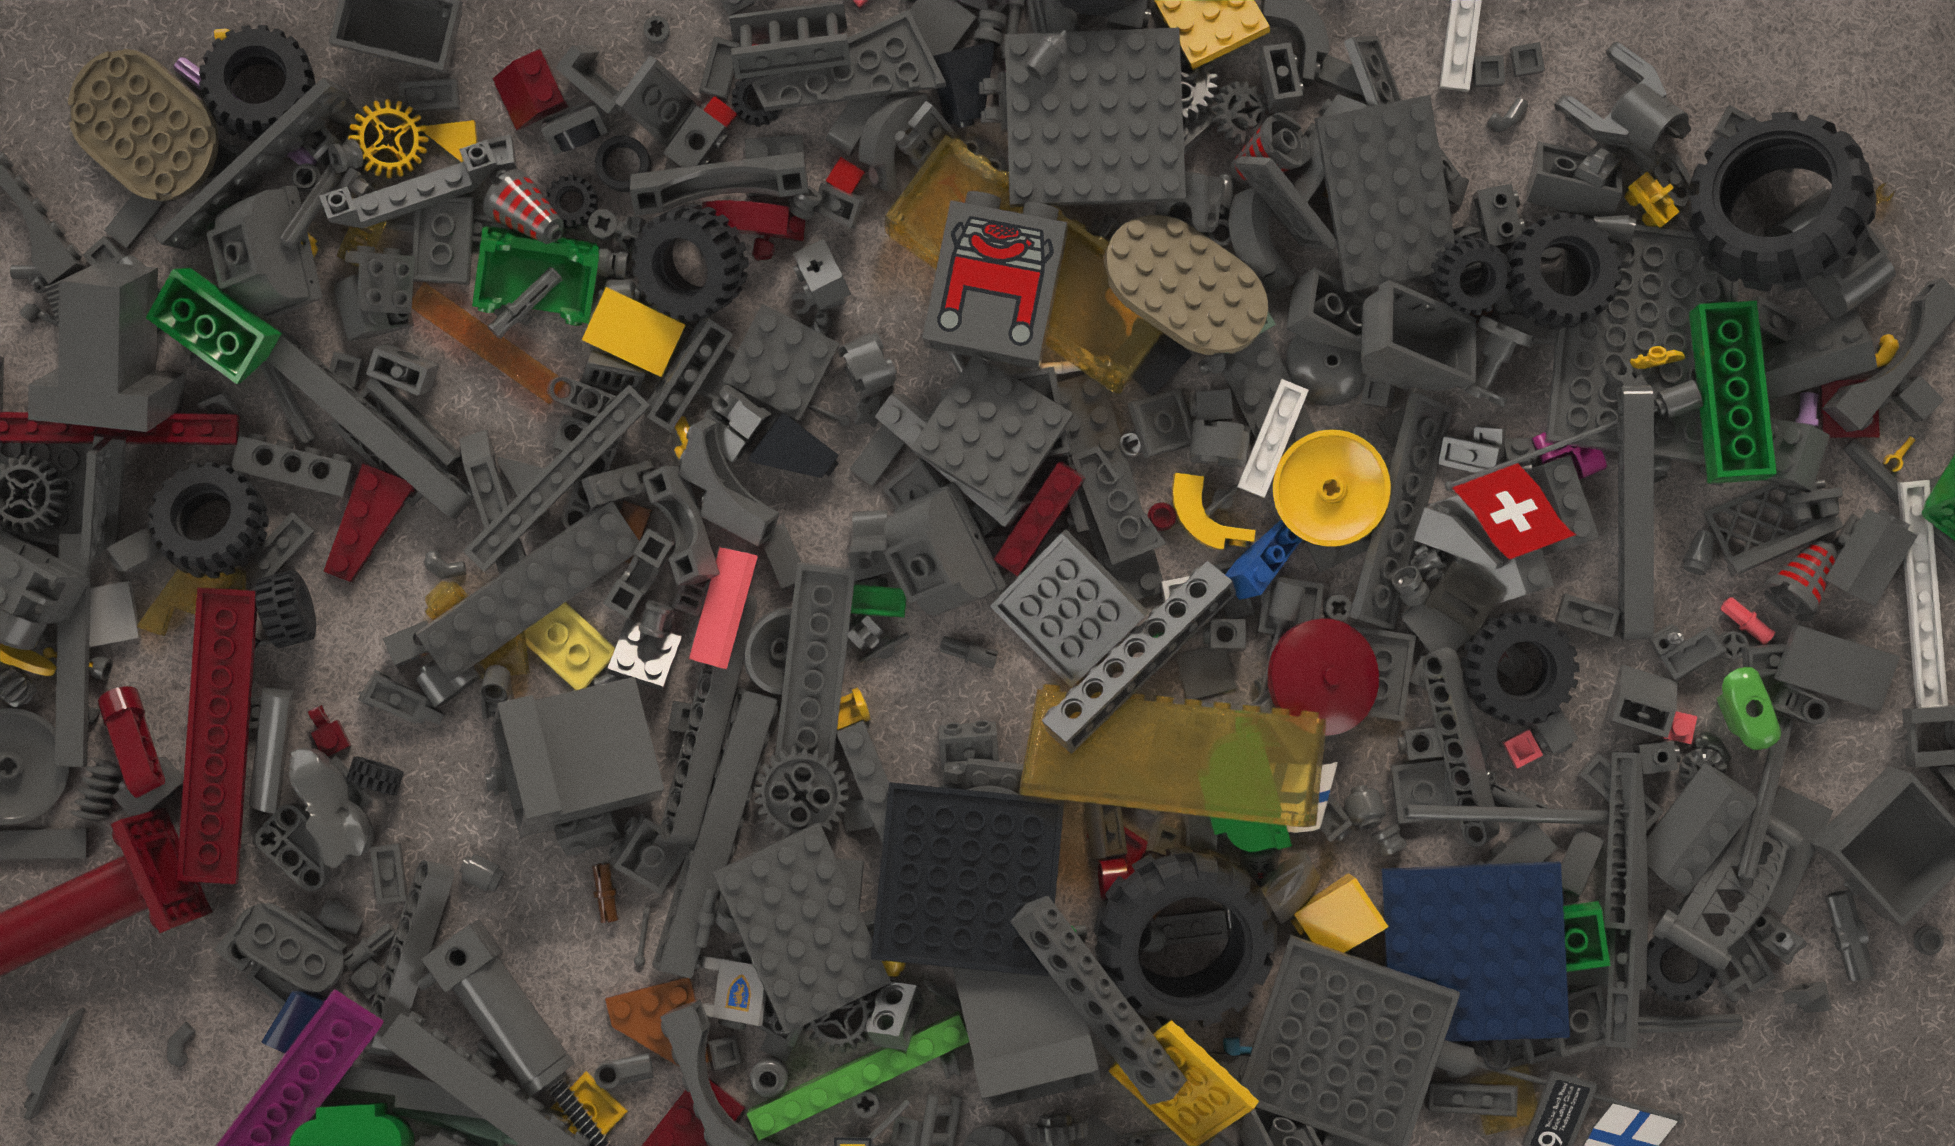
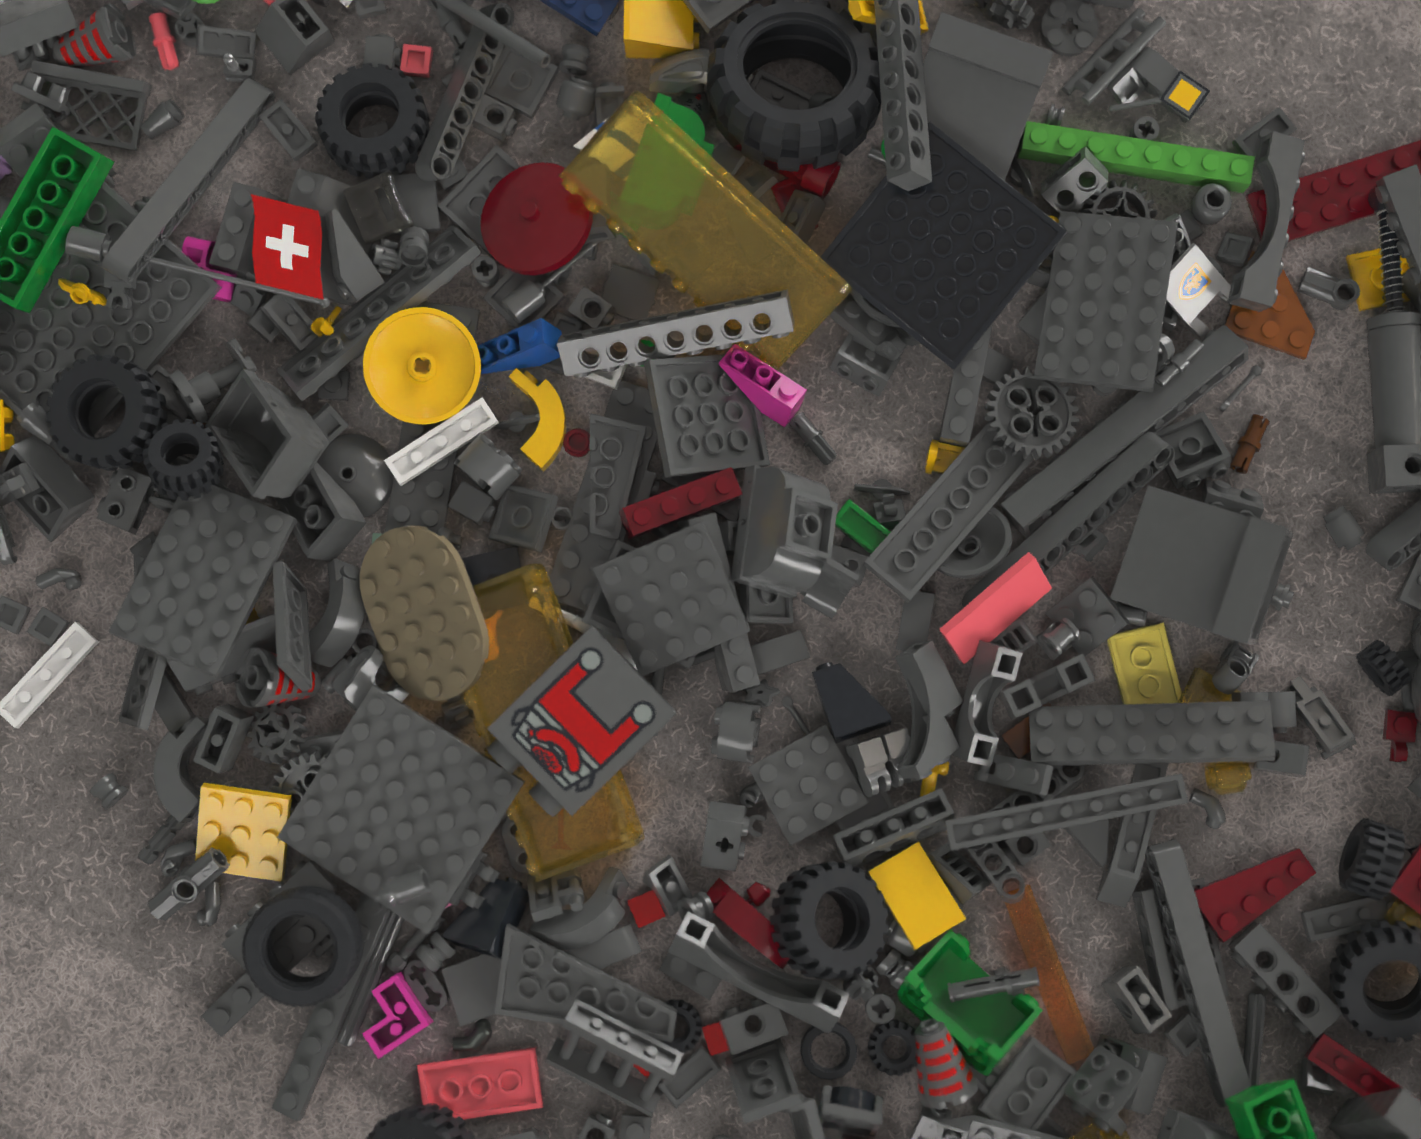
camera: 145 degrees left, 5 degrees down
(1039, 666) = (763, 385): none -> dark pink slope
(1438, 469) = (323, 325): none -> yellow hand

